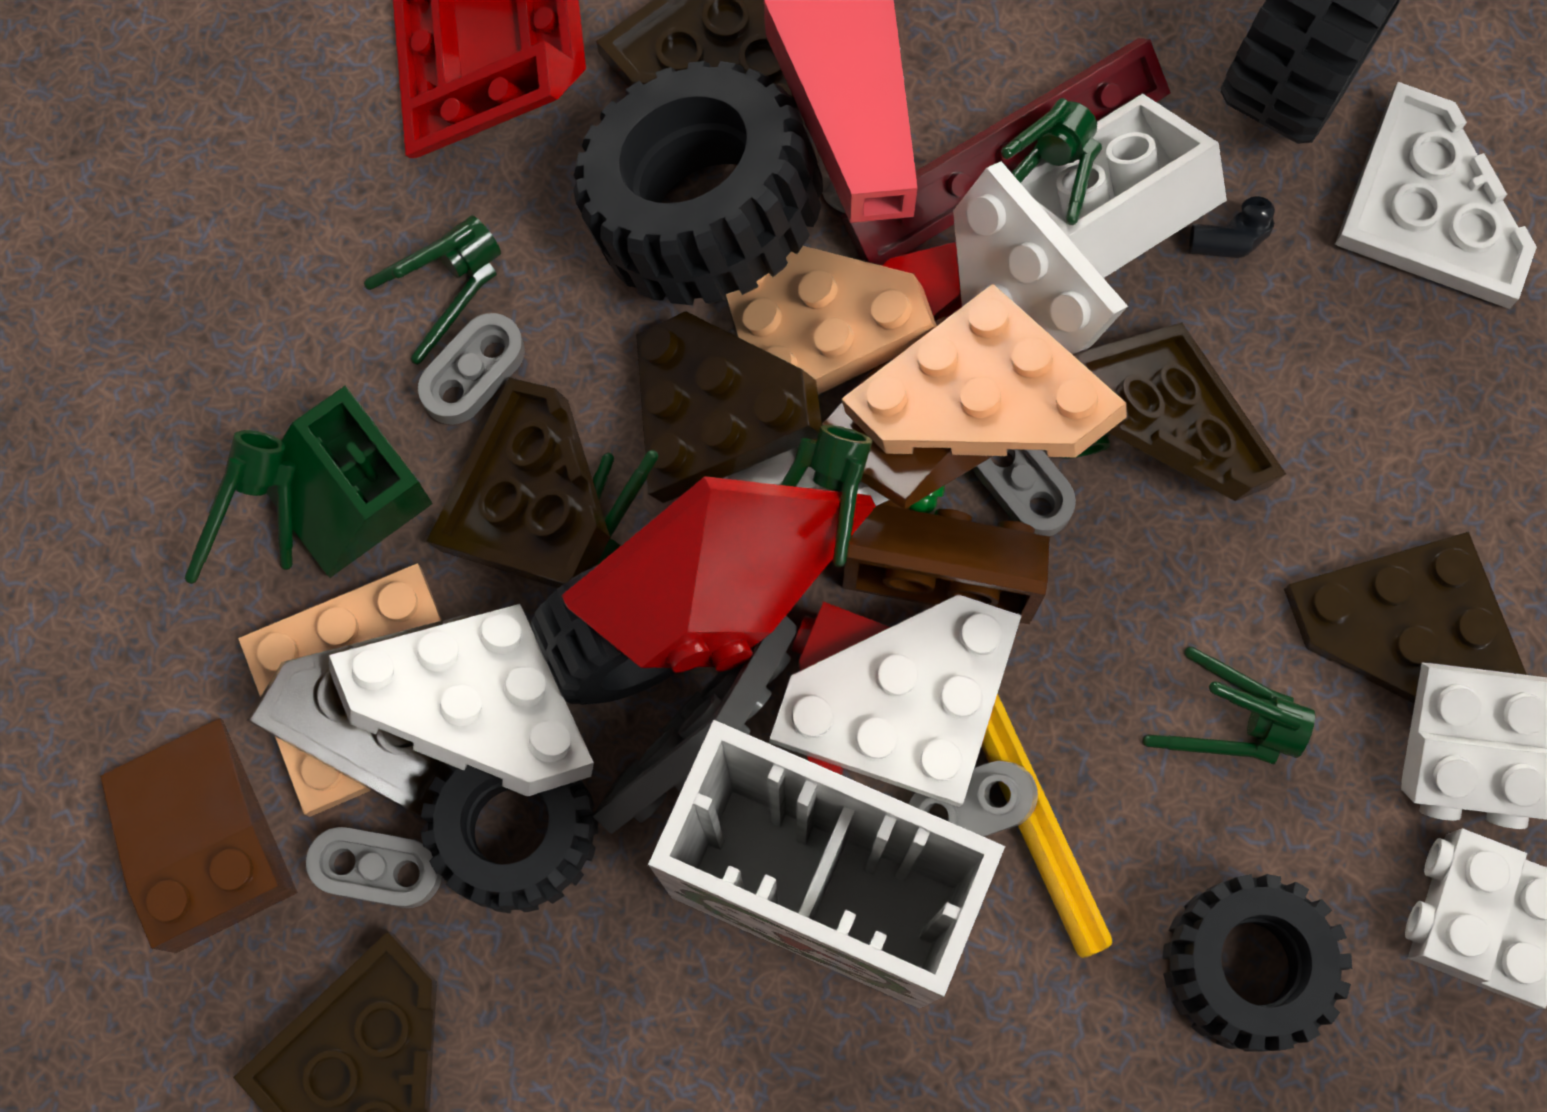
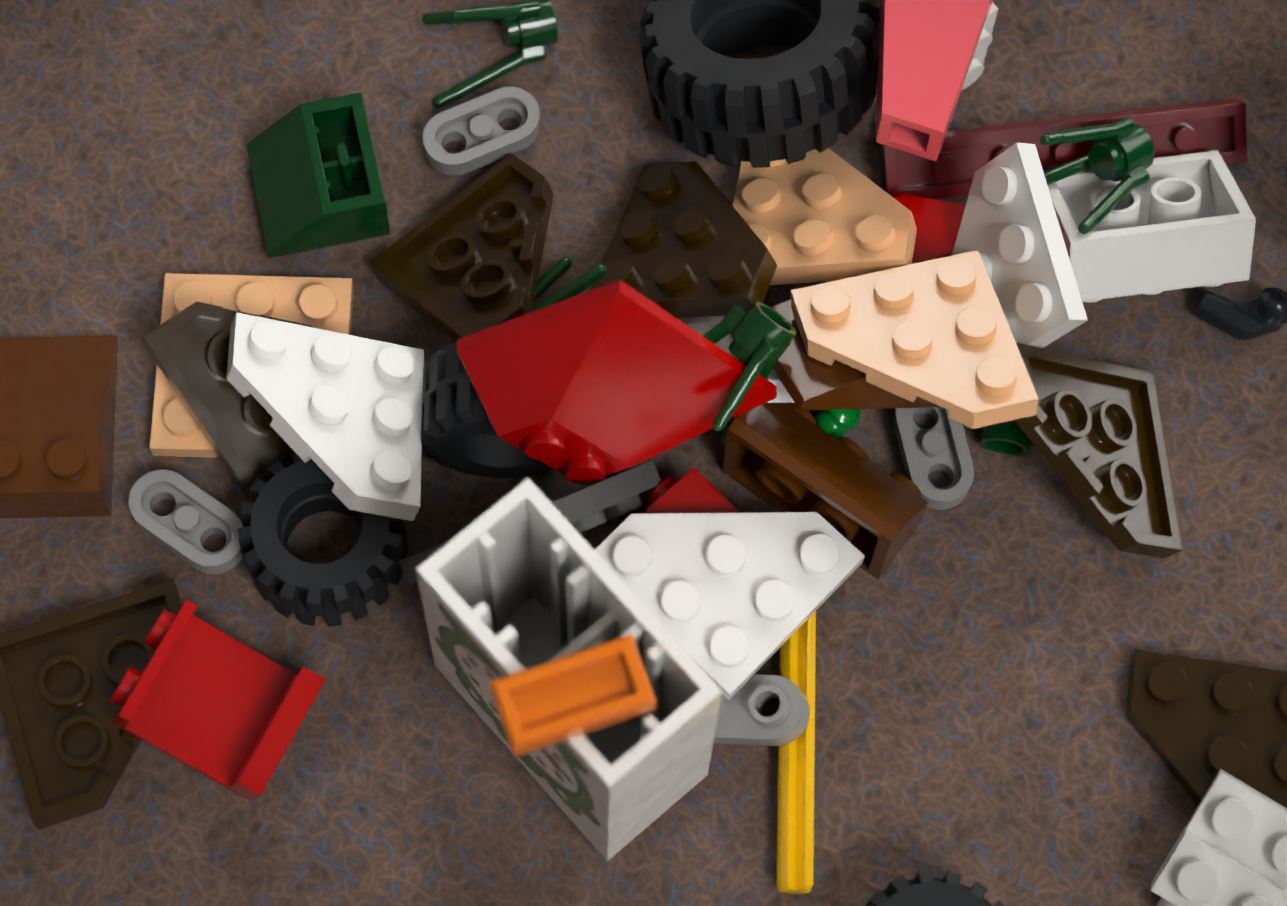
camera: 20 degrees right, 5 degrees down
(250, 469) = (245, 129): dark green plant -> none
(484, 1032) = (214, 702): none -> red panel
(866, 923) = (572, 695): none -> orange tile
(1273, 718) = (1061, 764): dark green plant -> none

